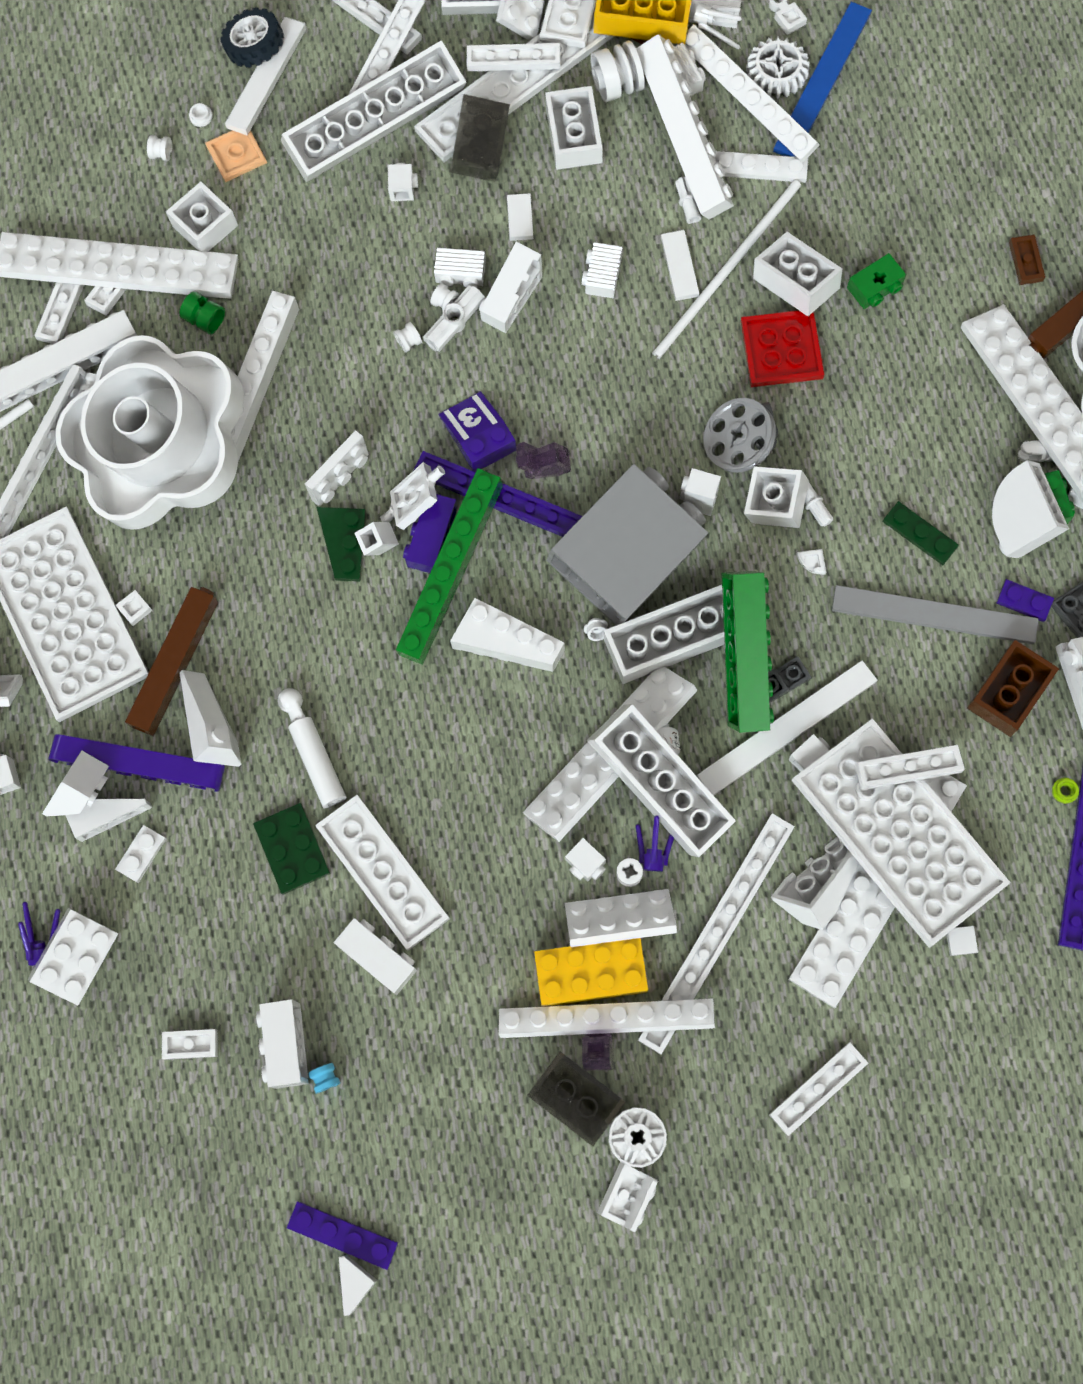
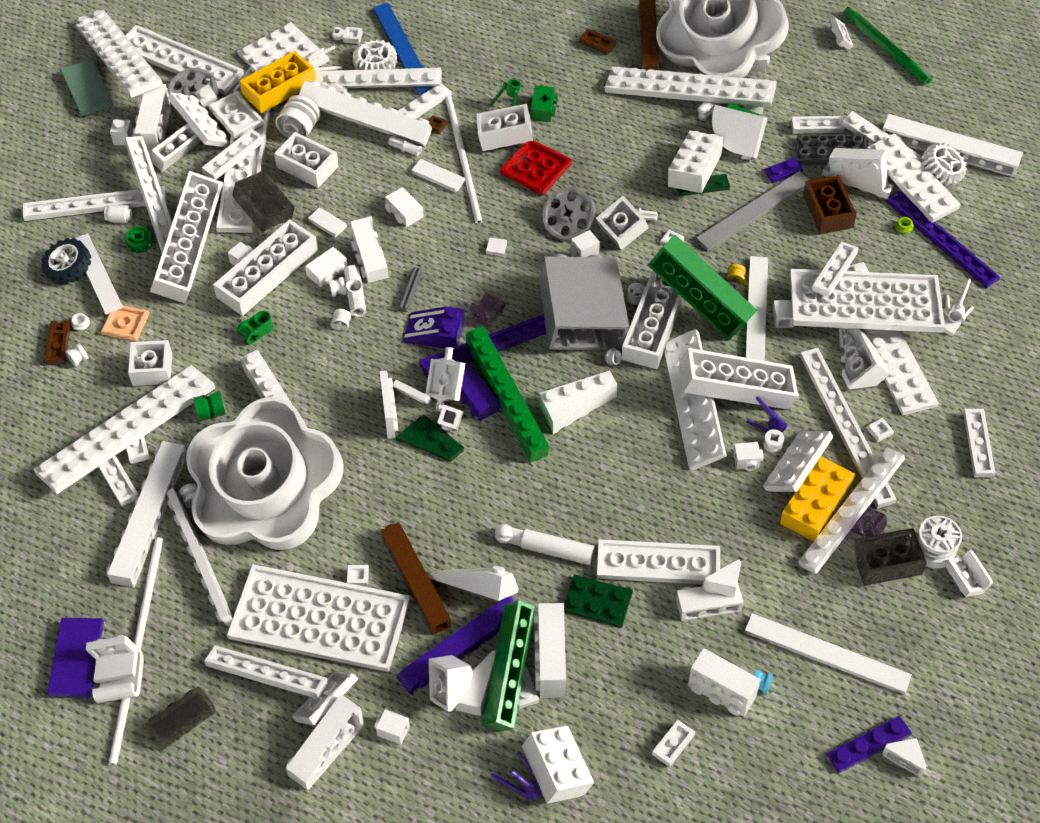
camera: 55 degrees left, 20 degrees down
(136, 828) = (508, 666): none -> green brick
(161, 117) = (57, 342): none -> reddish brown plate
(186, 852) = (550, 650): none -> white brick
(325, 270) = (256, 327): none -> green piece
(342, 80) = (138, 238): none -> green wheel
(351, 26) = (118, 213): none -> white brick
(379, 477) = (411, 392): none -> white tile
(398, 959) = (724, 580): none -> white slope
(404, 214) = (265, 267): none -> white brick
(414, 1120) = (828, 654): none -> white tile
(507, 366) = (410, 289): none -> dark grey axle
(638, 400) = (496, 247): none -> white tile
(699, 580) = (634, 289): none -> white wheel
(745, 970) = (880, 430): none -> white tile
(747, 203) = (437, 124): none -> reddish brown tile
(819, 666) = (736, 274): none -> yellow wheel
(855, 236) = (512, 89): none -> green plant
(937, 501) = (695, 161): none -> white brick
(981, 939) = (957, 312): none -> white plant

